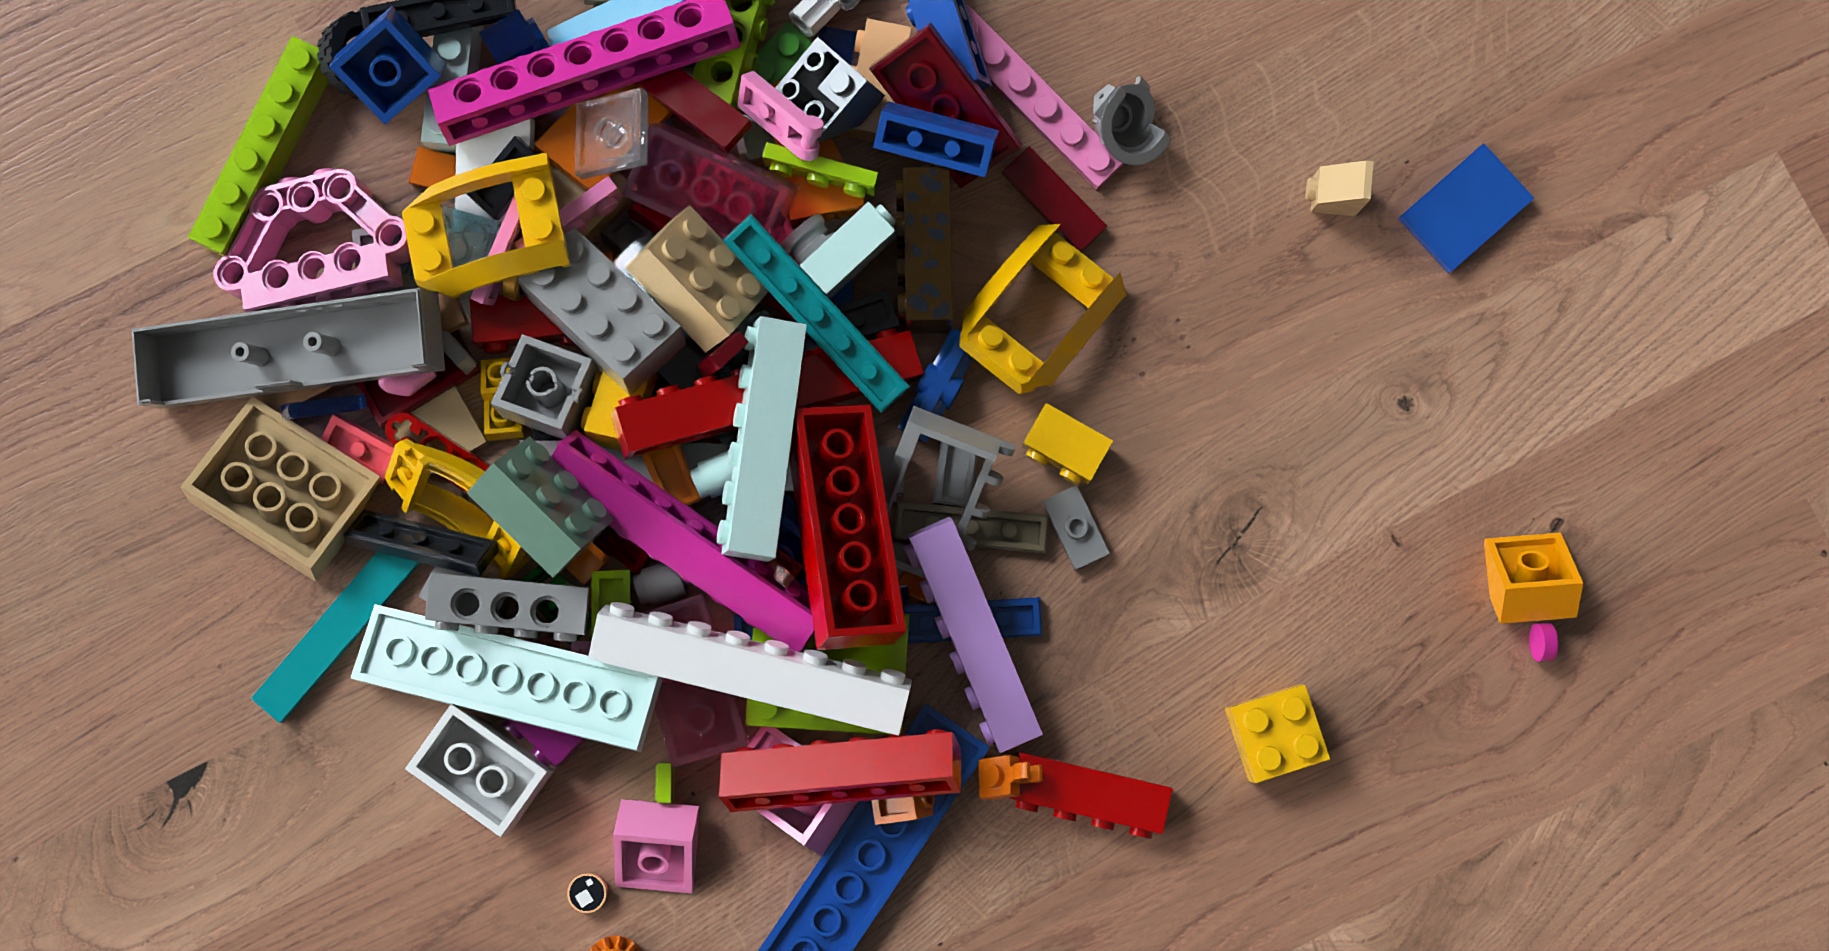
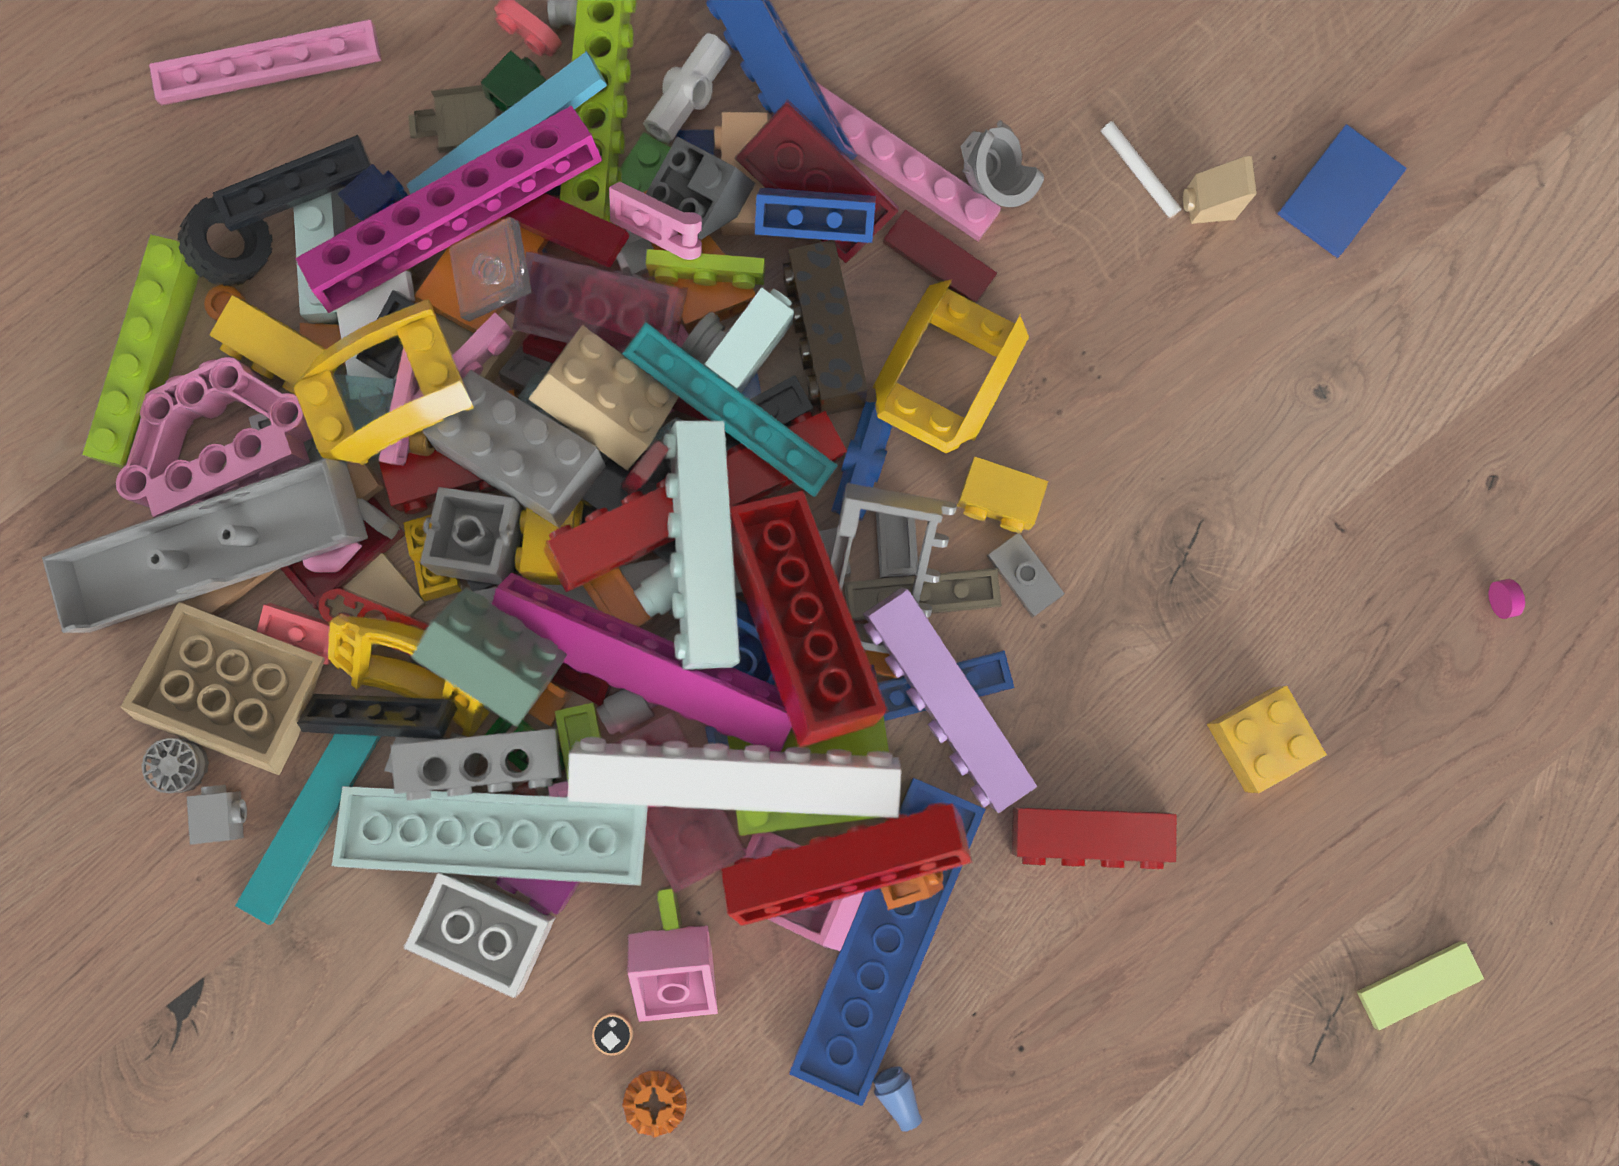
camera: 15 degrees left, 0 degrees up
(218, 552) = (175, 765): none -> light grey wheel
(249, 608) = (216, 815): none -> light grey brick
(323, 407) = (252, 598): clear blue tile -> none
(349, 115) = (218, 298): none -> orange tile
(383, 160) = (265, 341): none -> yellow brick
(388, 65) = (251, 242): blue brick -> none
(785, 568) = (750, 671): clear red tile -> none
(1002, 776) = (1007, 835): orange plate -> none
(1270, 149) = (1140, 169): none -> white bar
(1532, 578) = (1483, 538): light orange slope -> none

